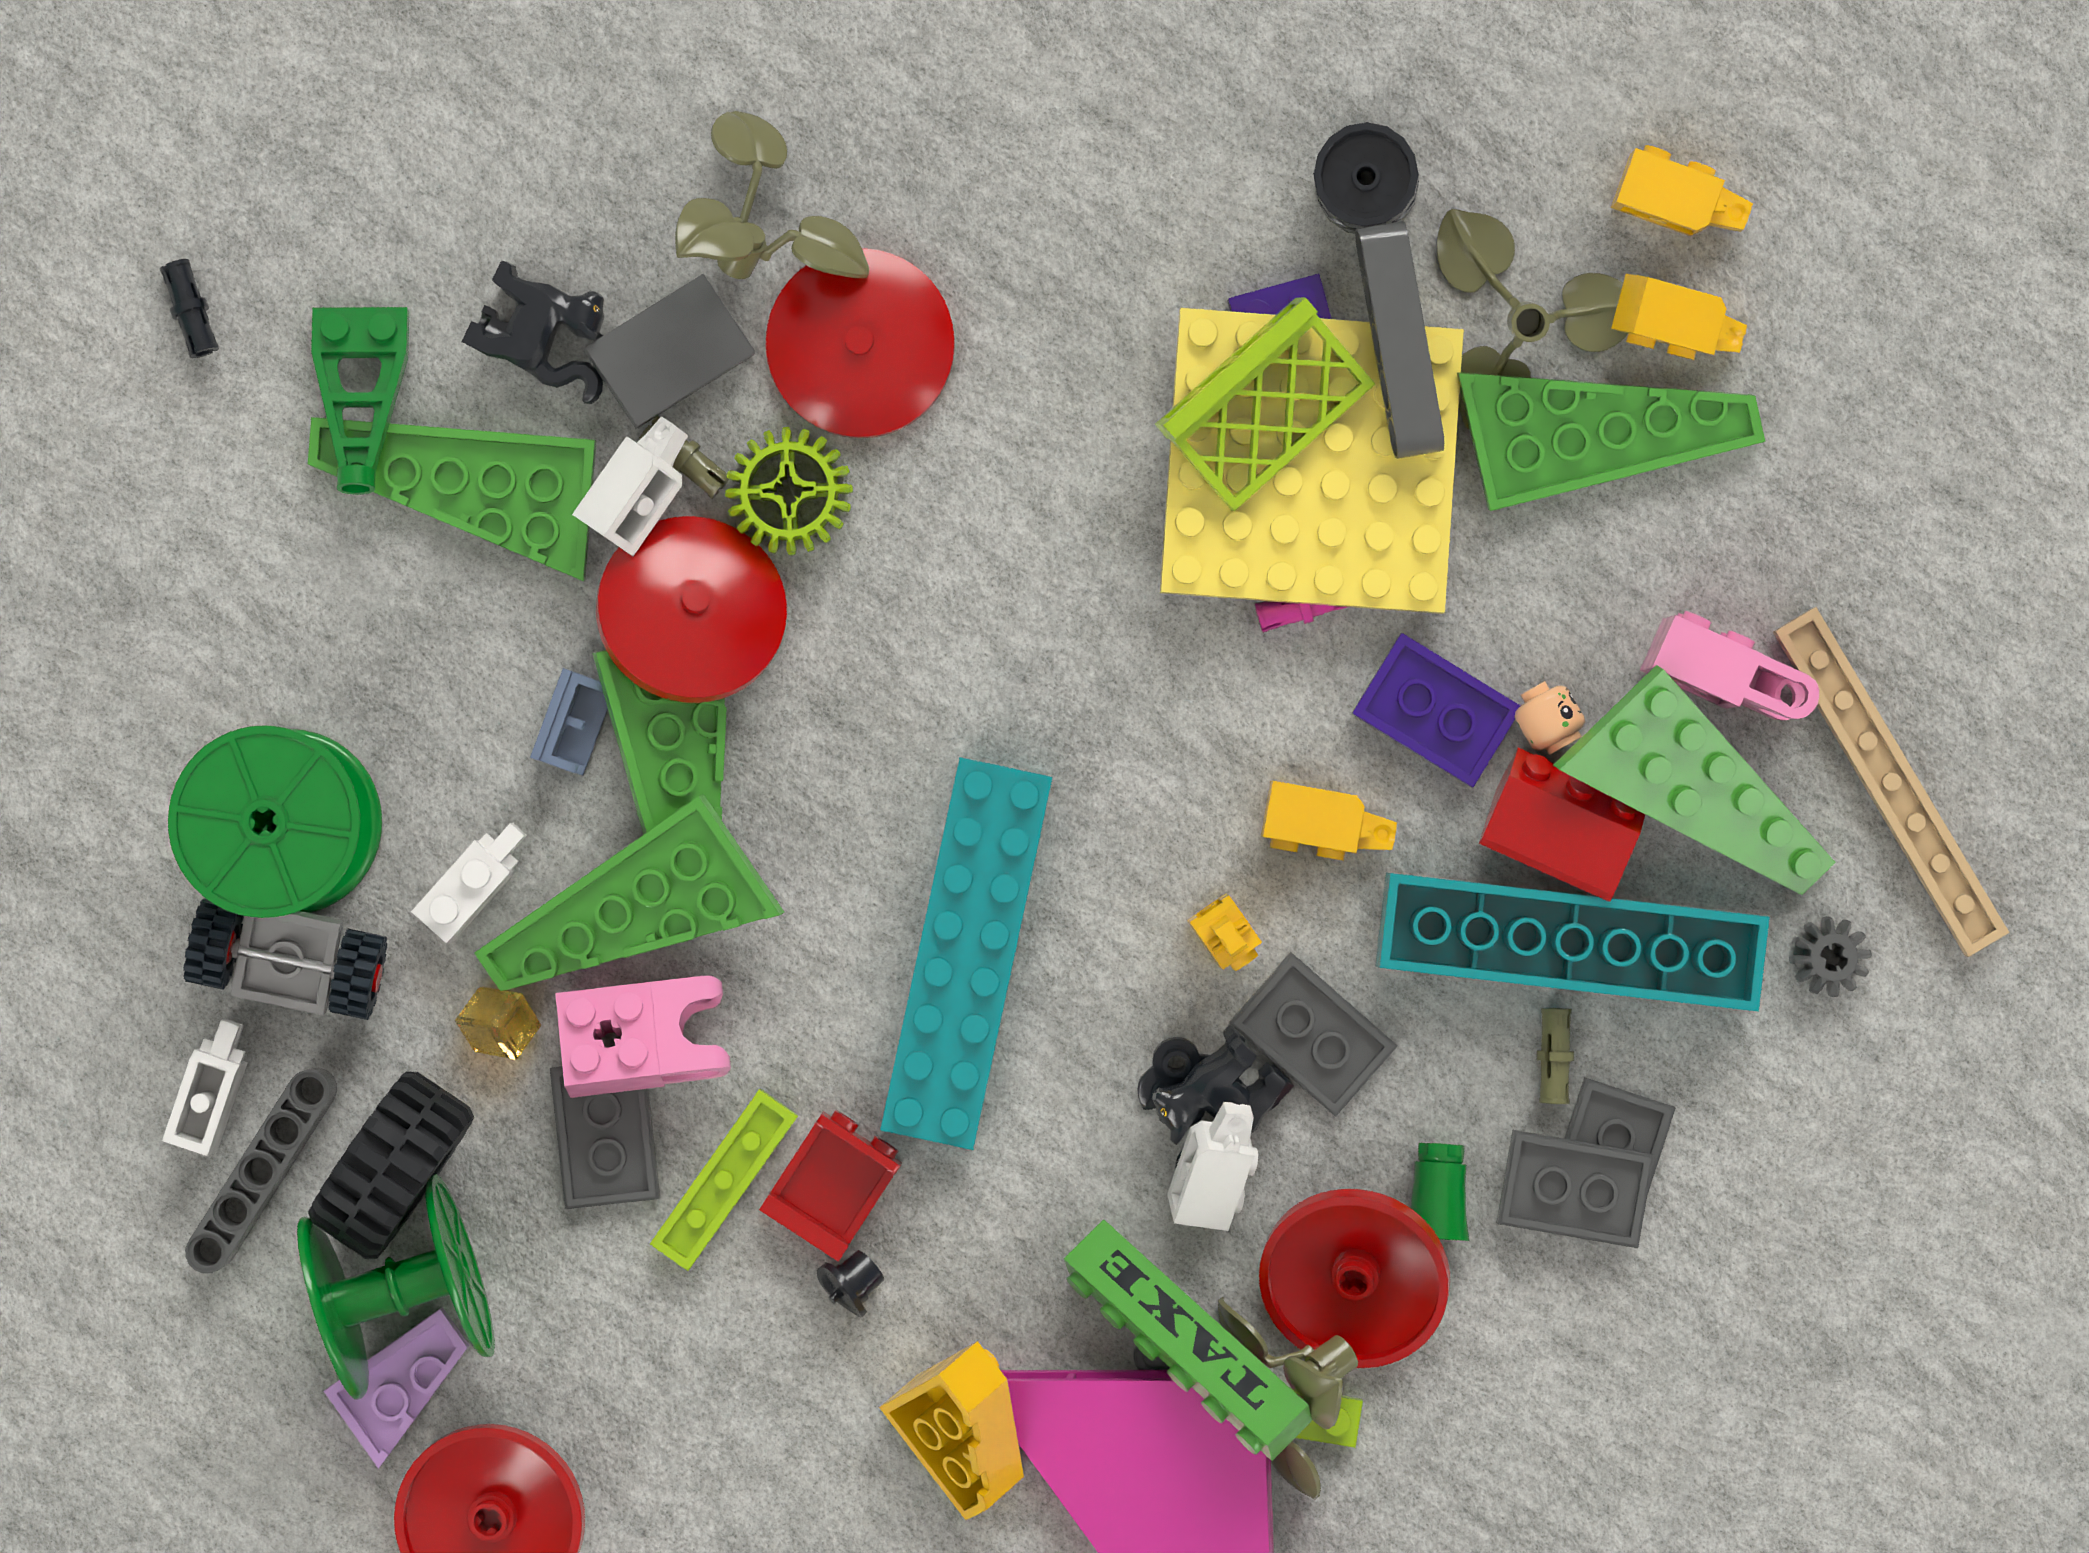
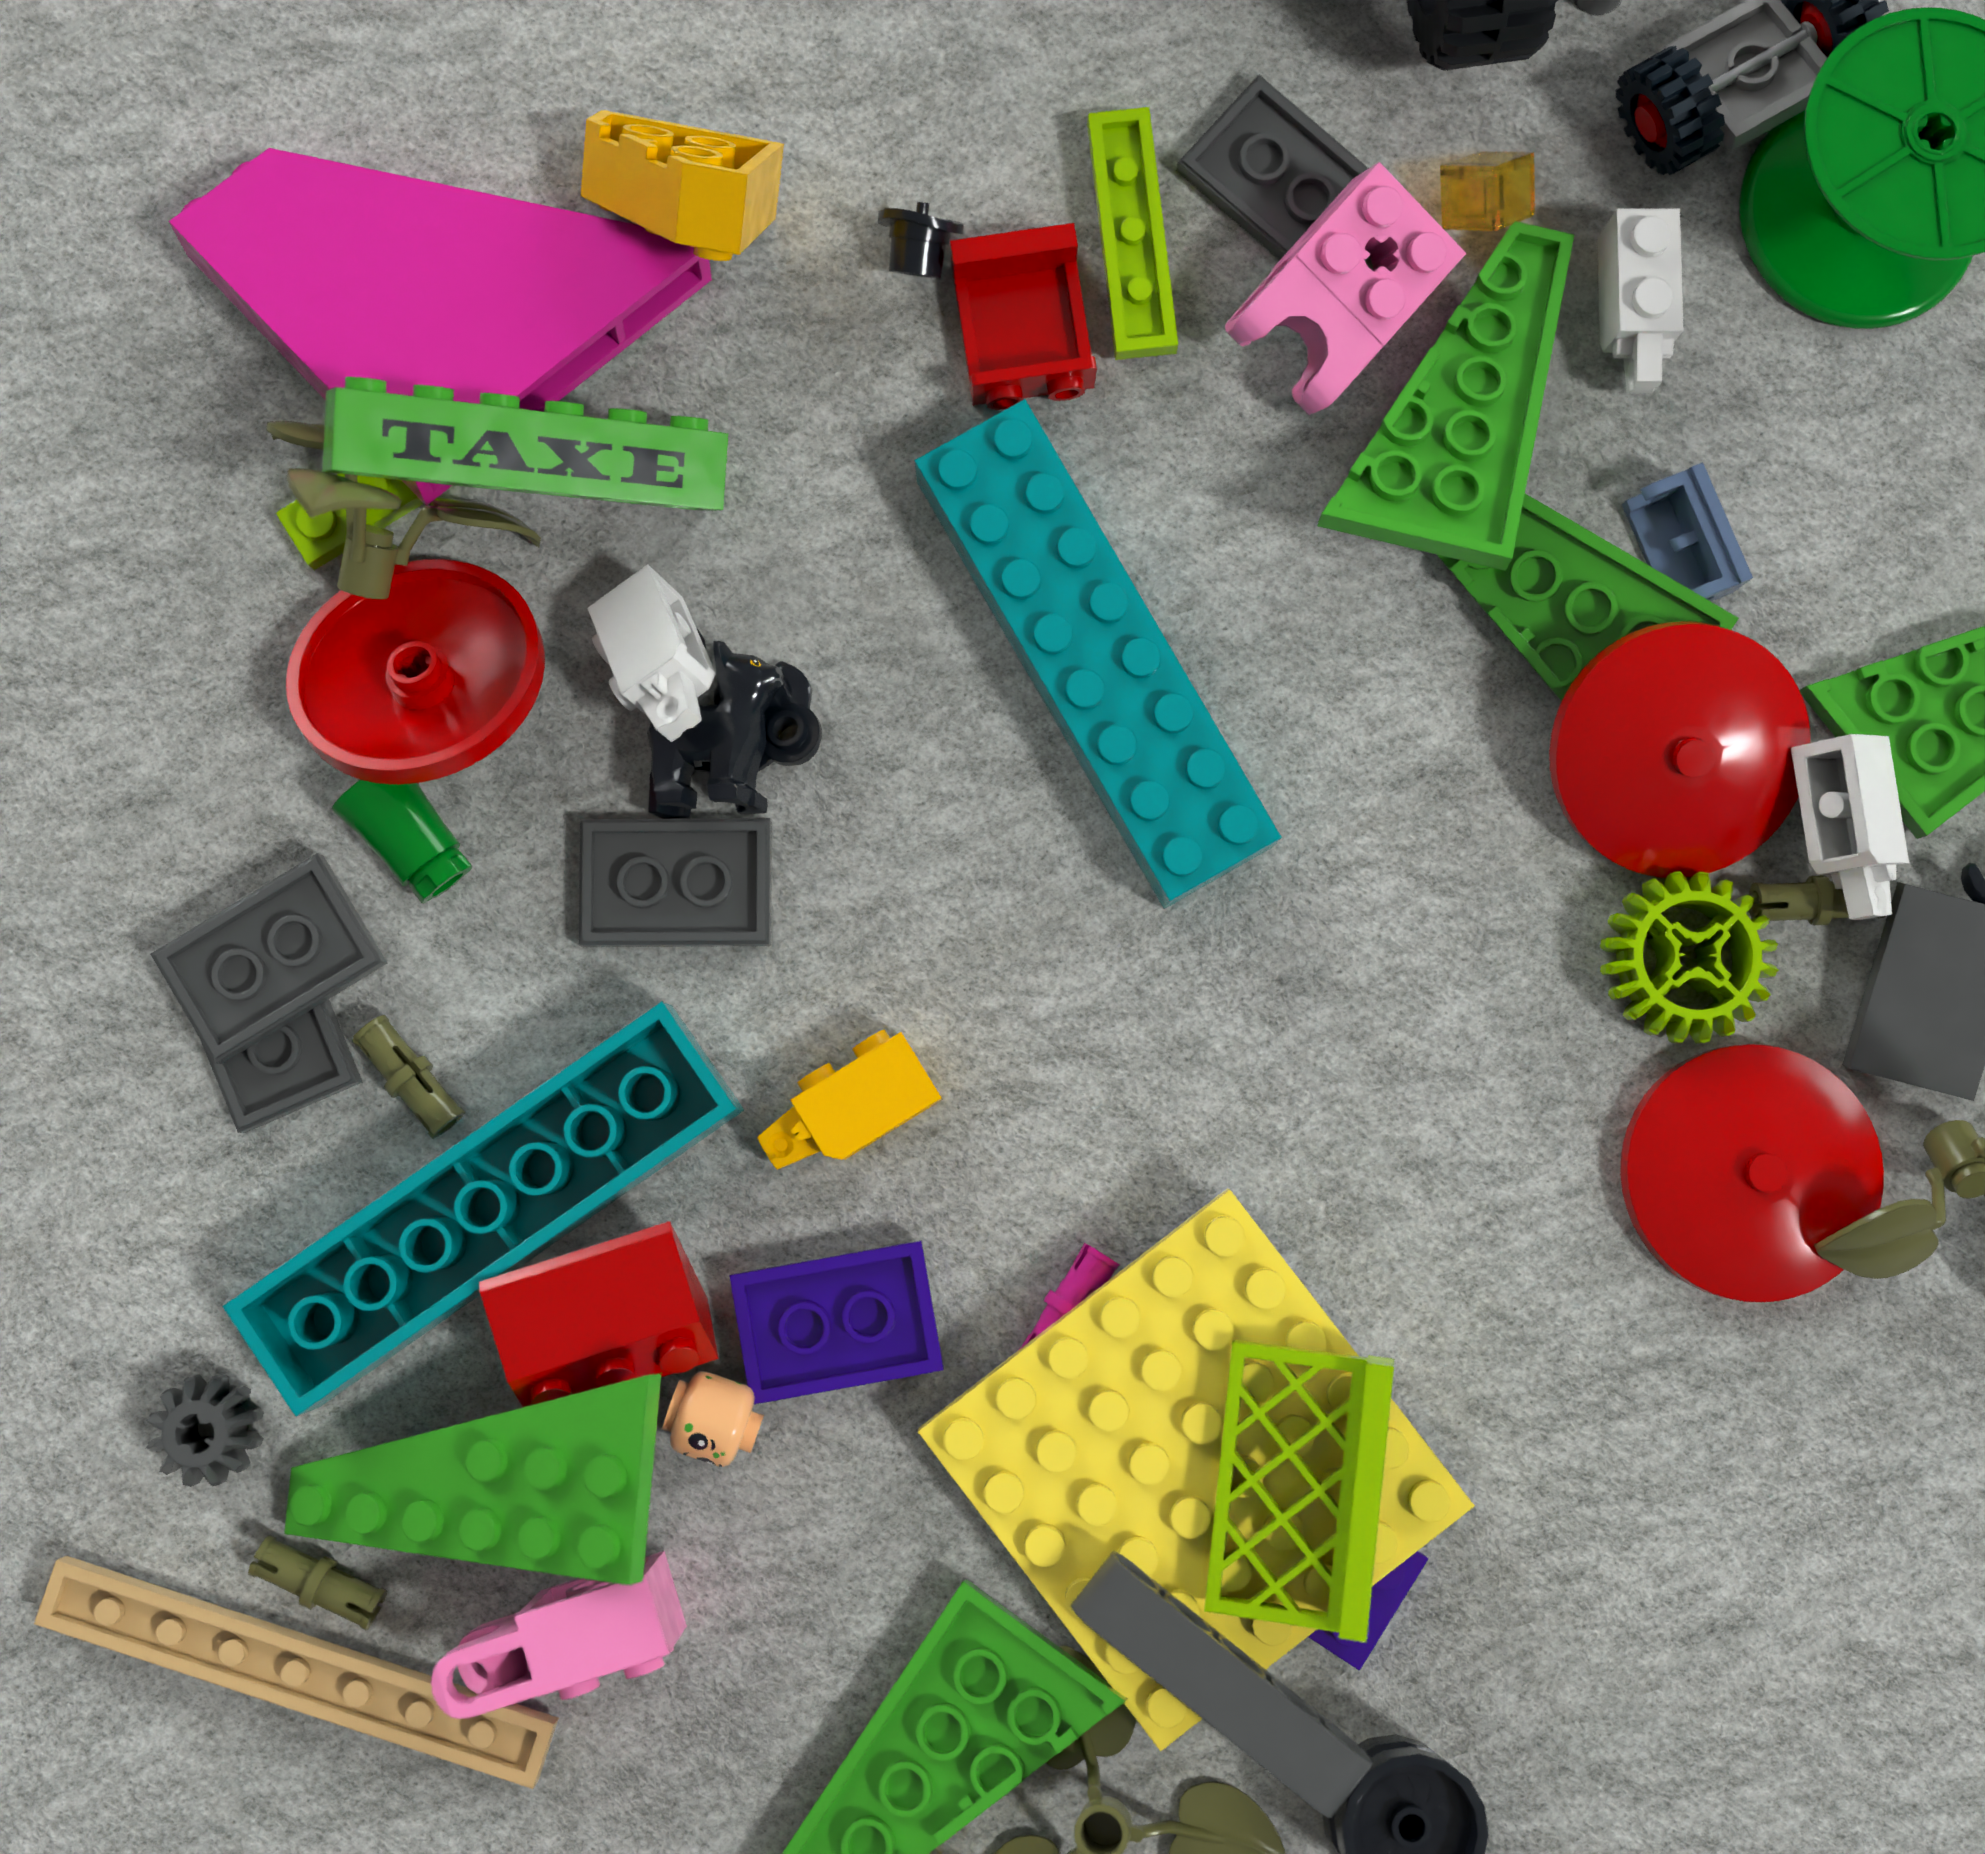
camera: 140 degrees right, 5 degrees down
(1226, 933) = (851, 898): yellow hinge -> none
(1840, 820) = (317, 1582): none -> olive pin

